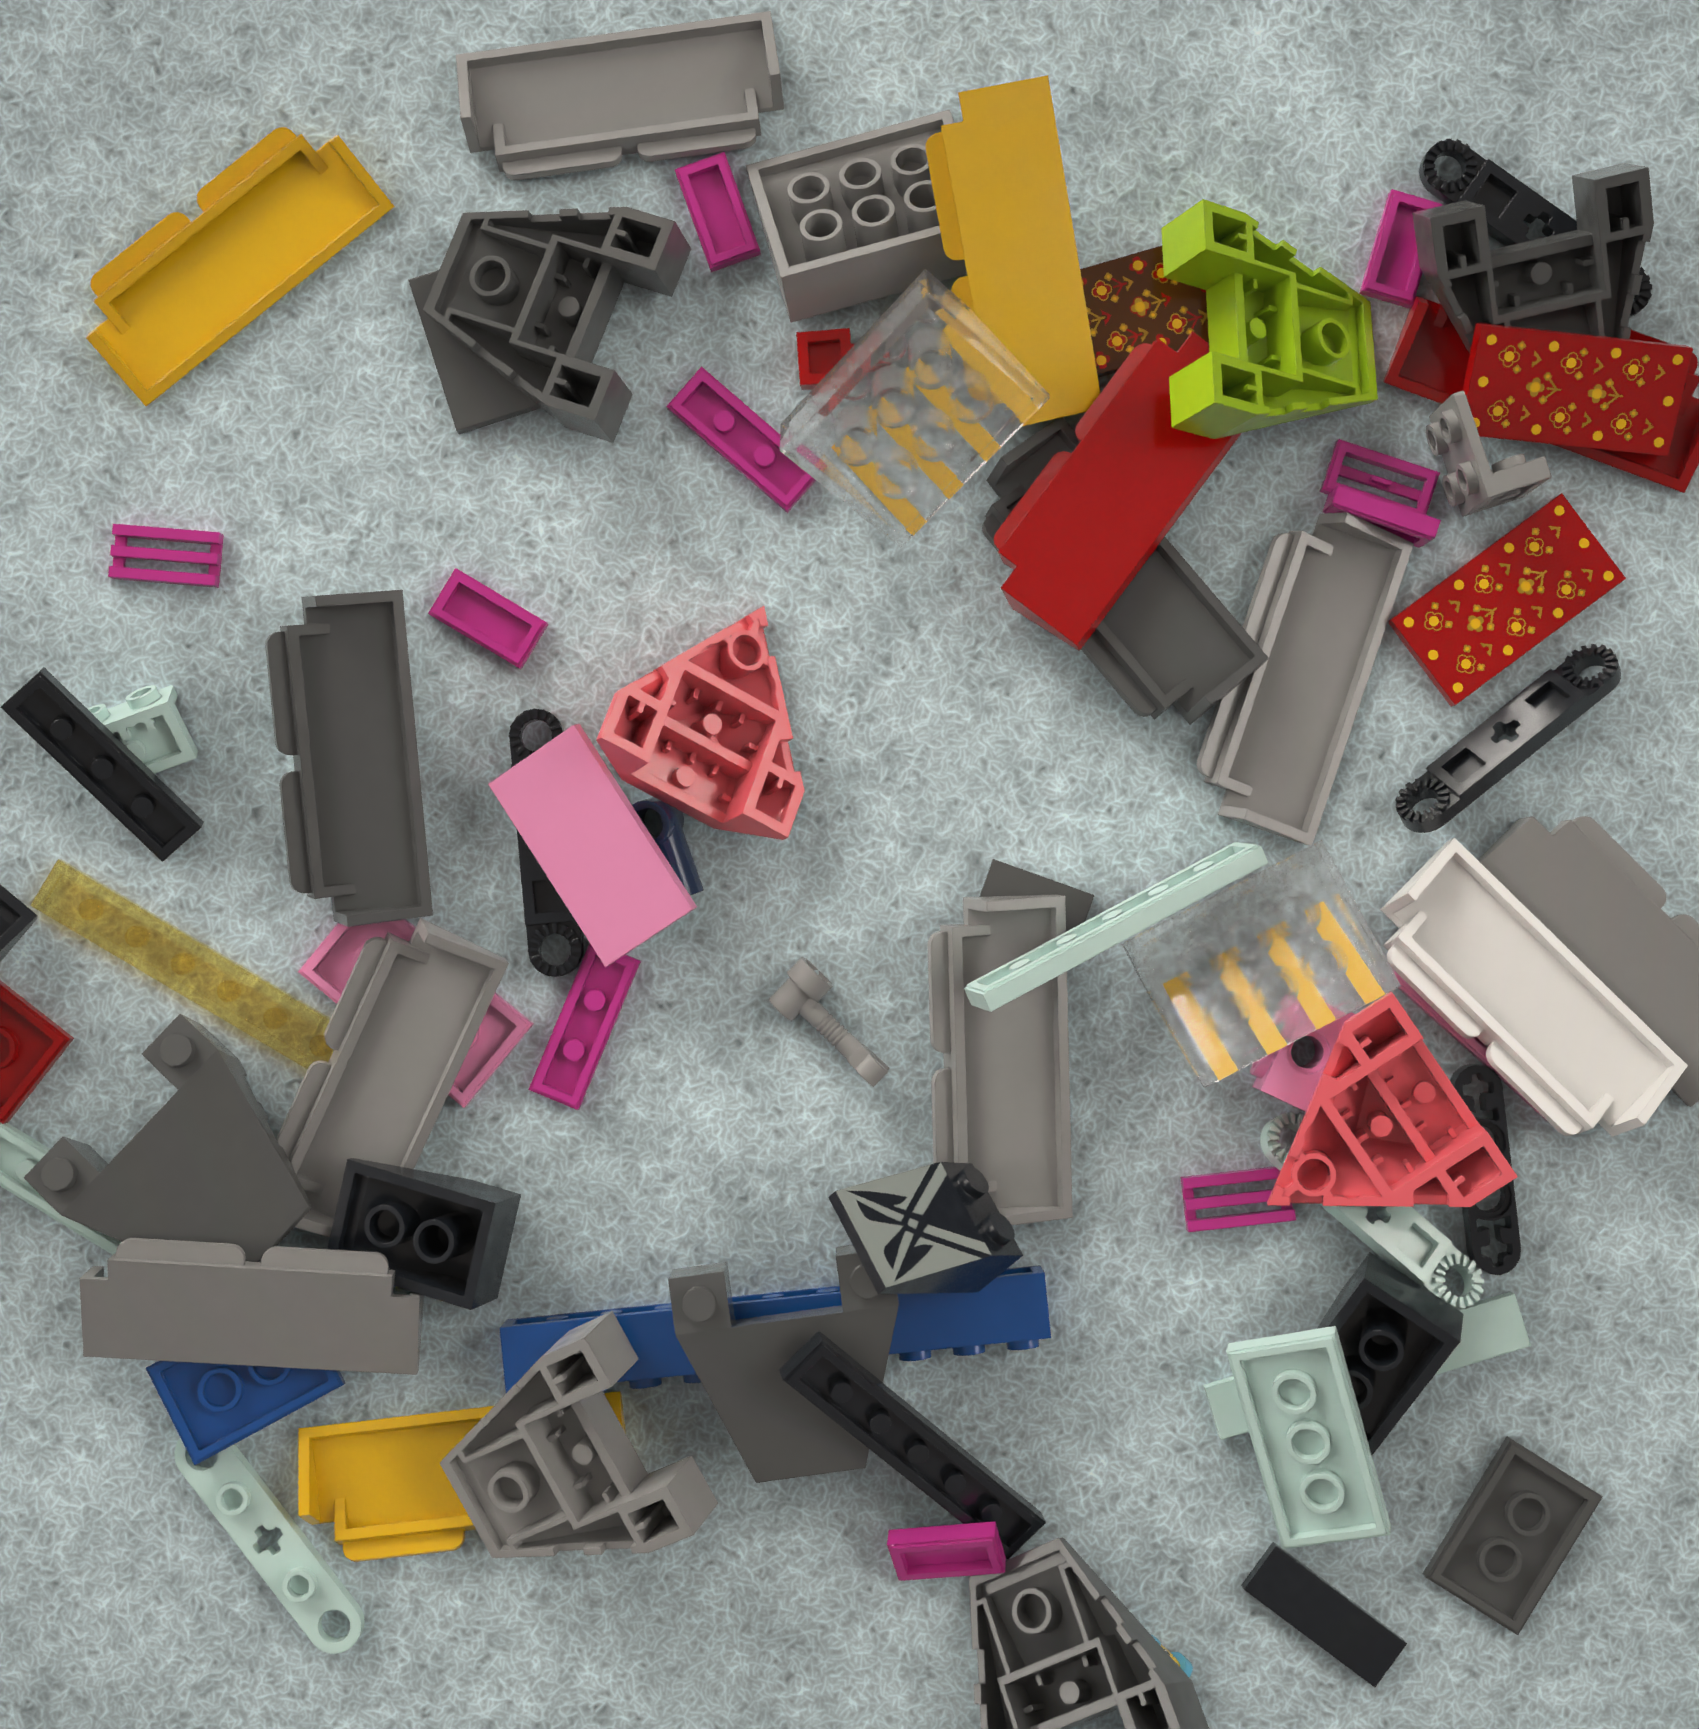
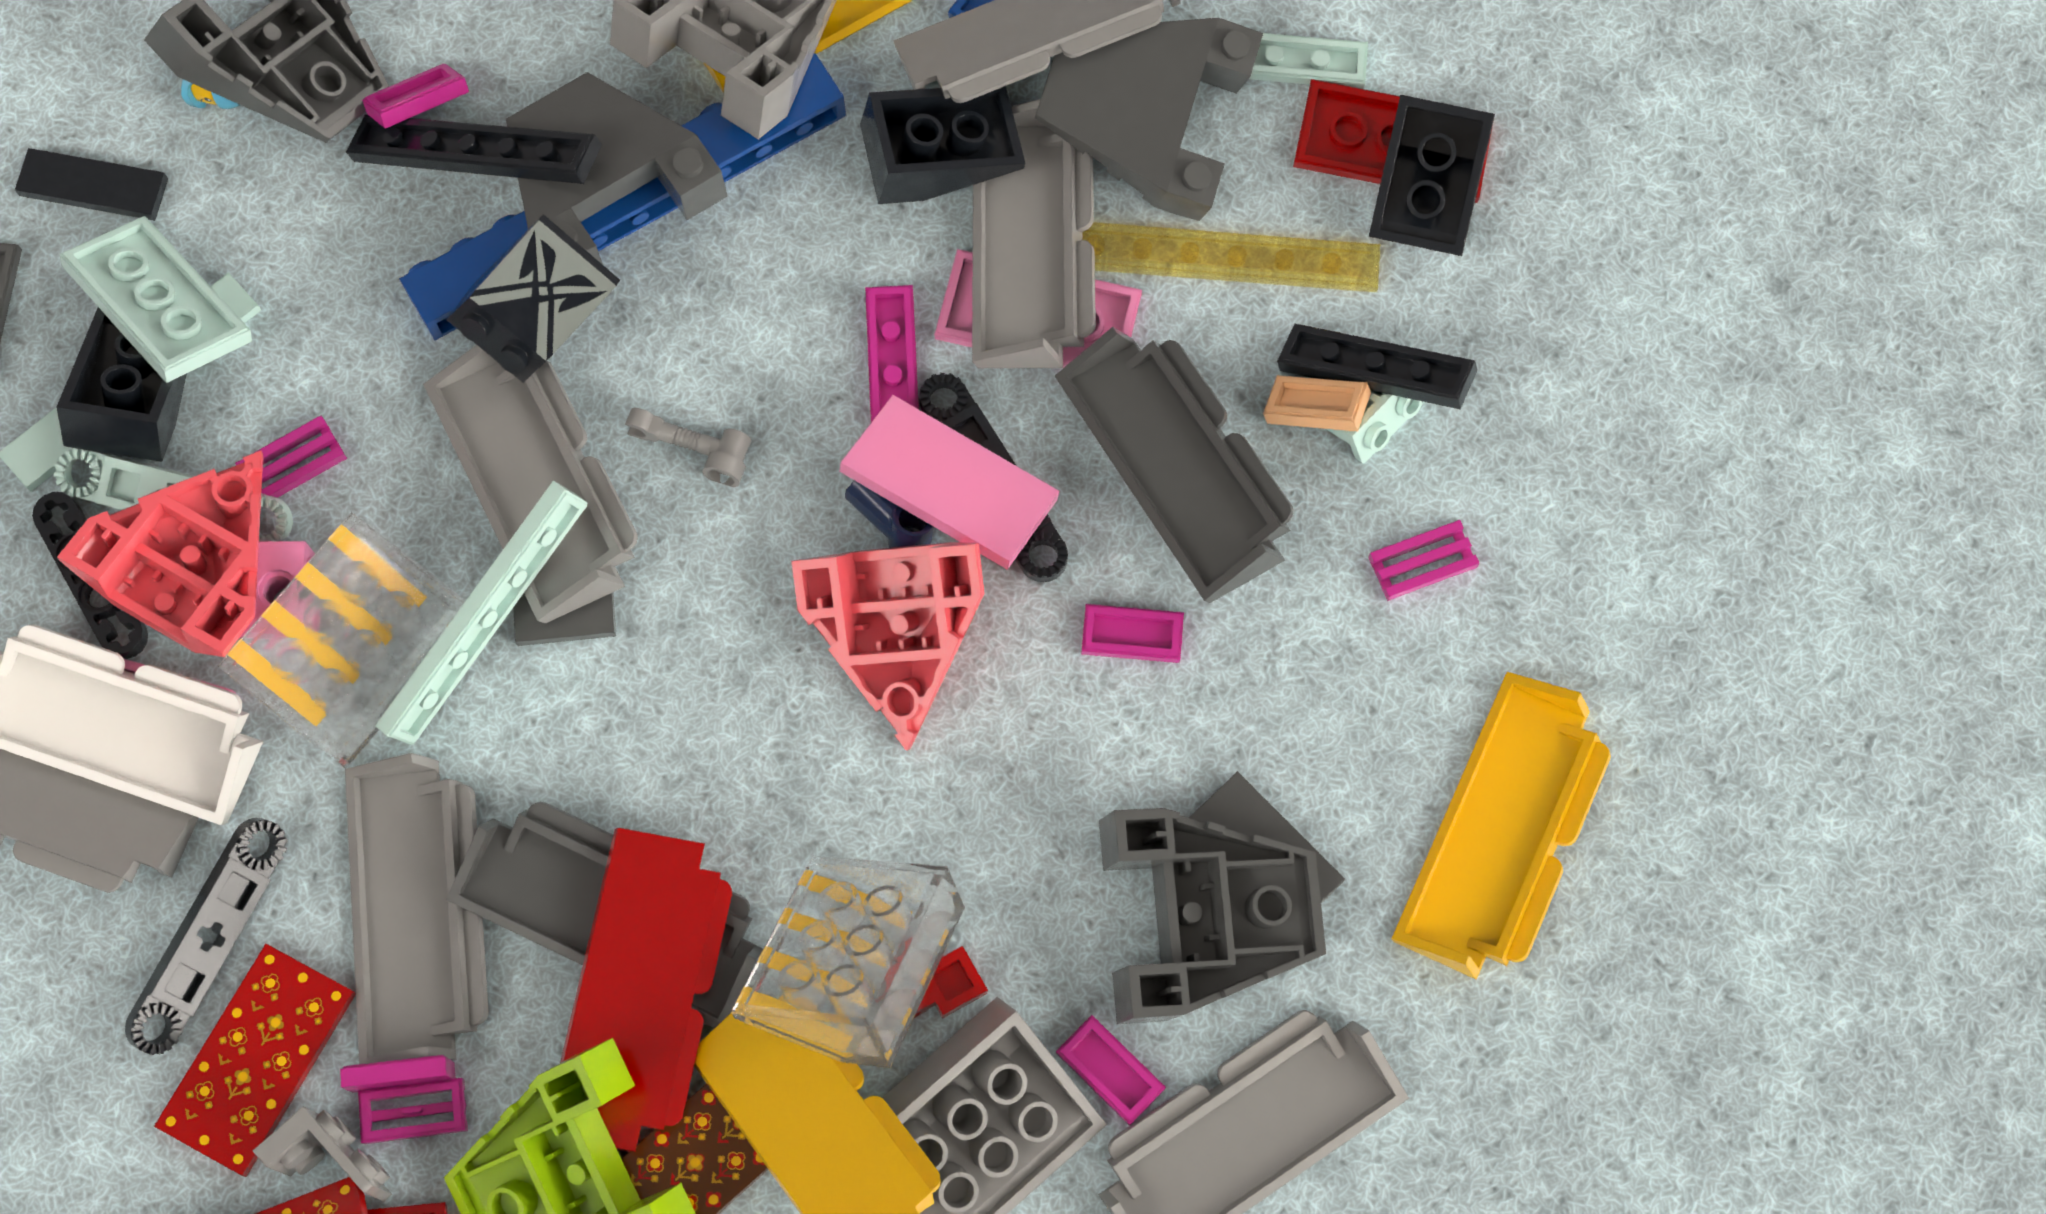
camera: 155 degrees right, 15 degrees down
(184, 759) = (1317, 403): none -> light nougat tile
(740, 438) = (1000, 883): dark pink tile -> none

